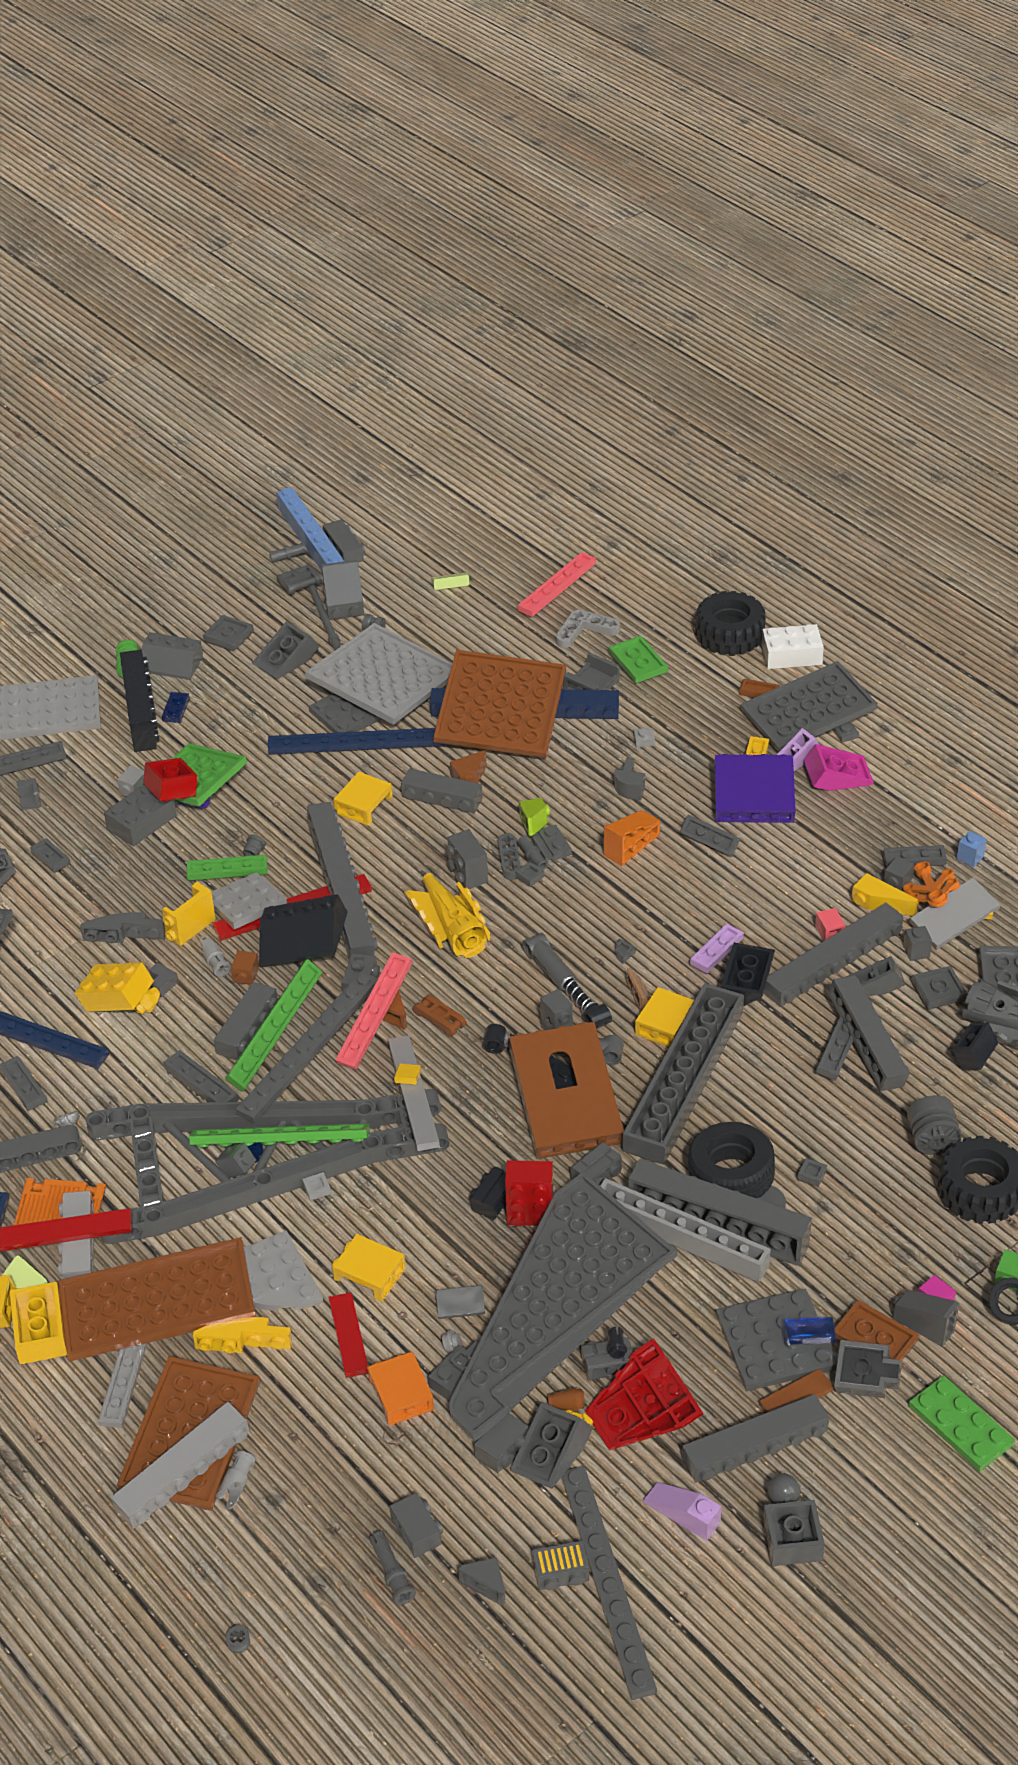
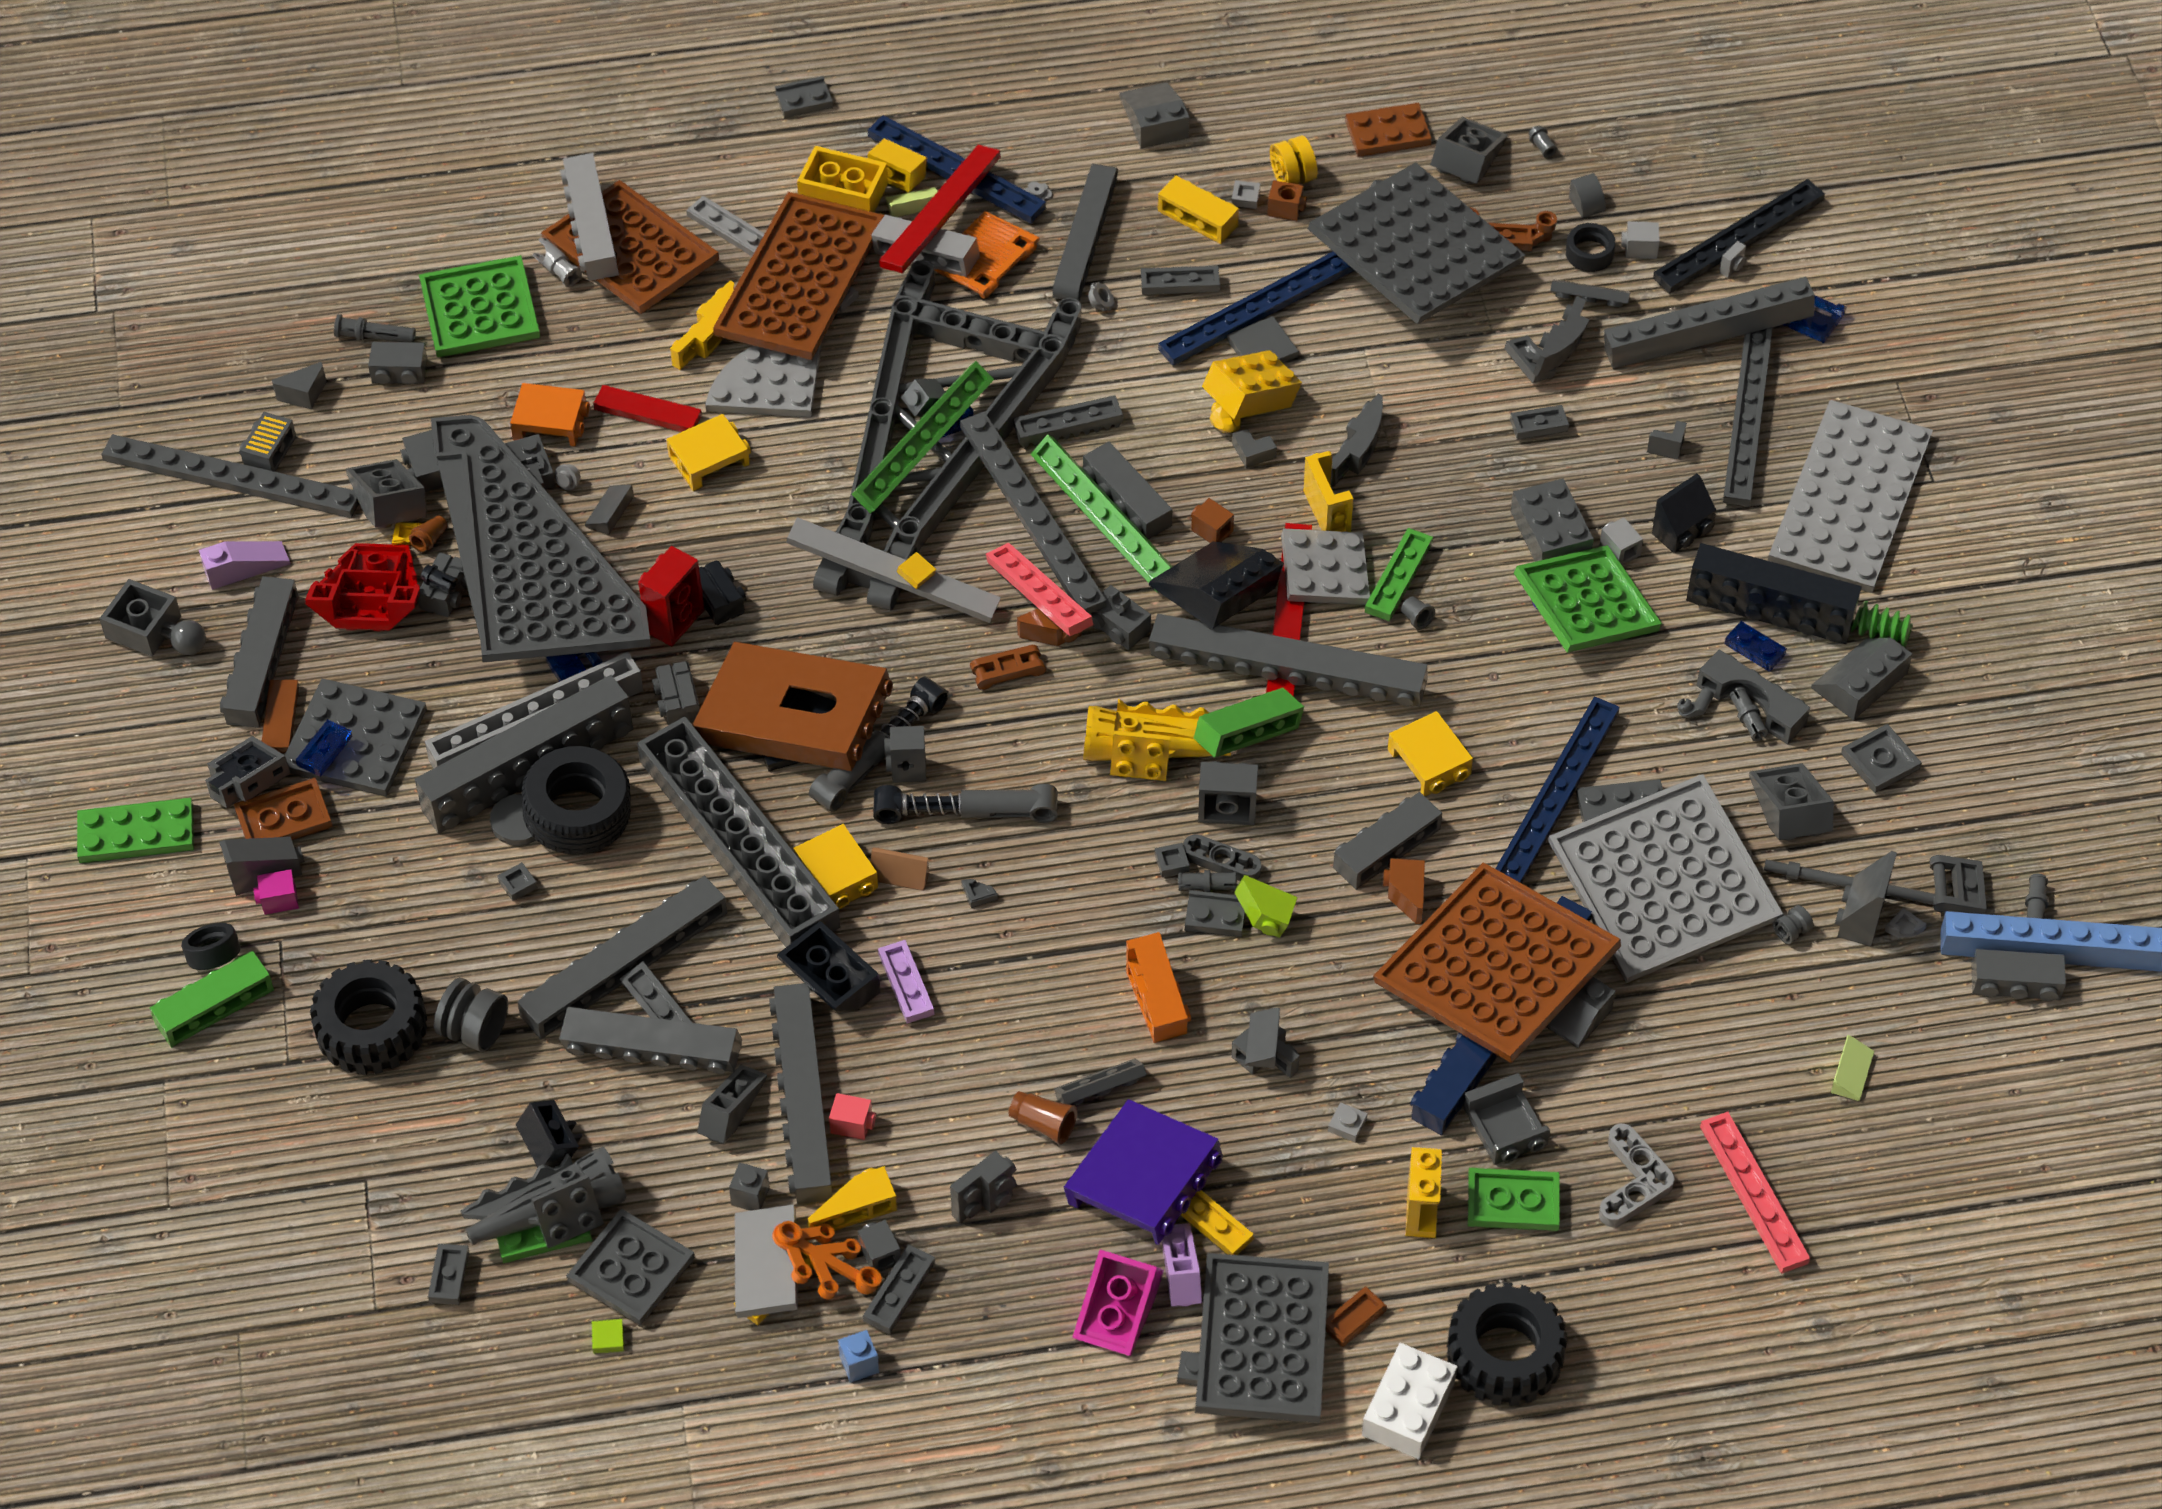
camera: 120 degrees right, 10 degrees up
(60, 1014) = (1263, 337): none -> dark grey tile
(95, 761) = (1684, 514): none -> black slope
(170, 779) = (1557, 539): red brick -> none
(212, 704) = (1783, 711): none -> dark grey arch
(214, 956) = (1256, 504): light grey piece -> none
(232, 689) = (1748, 714): none -> dark grey pin
(238, 1647) = (404, 214): dark grey bush -> none
(241, 712) = (1699, 707): none -> dark grey arm
(316, 1186) = (845, 456): light grey plate -> none
(316, 1507) = (479, 306): none -> bright green plate
(407, 869) = (1248, 722): none -> bright green brick
(630, 768) = (1263, 1038): none -> dark grey slope
(674, 676) = (1423, 1192): none -> yellow panel
(754, 844) = (1044, 1115): none -> dark orange plant
(820, 1085) = (643, 941): none -> dark grey brick
(827, 841) = (985, 1185): none -> dark grey plate
(939, 987) = (669, 1172): dark grey plate -> none

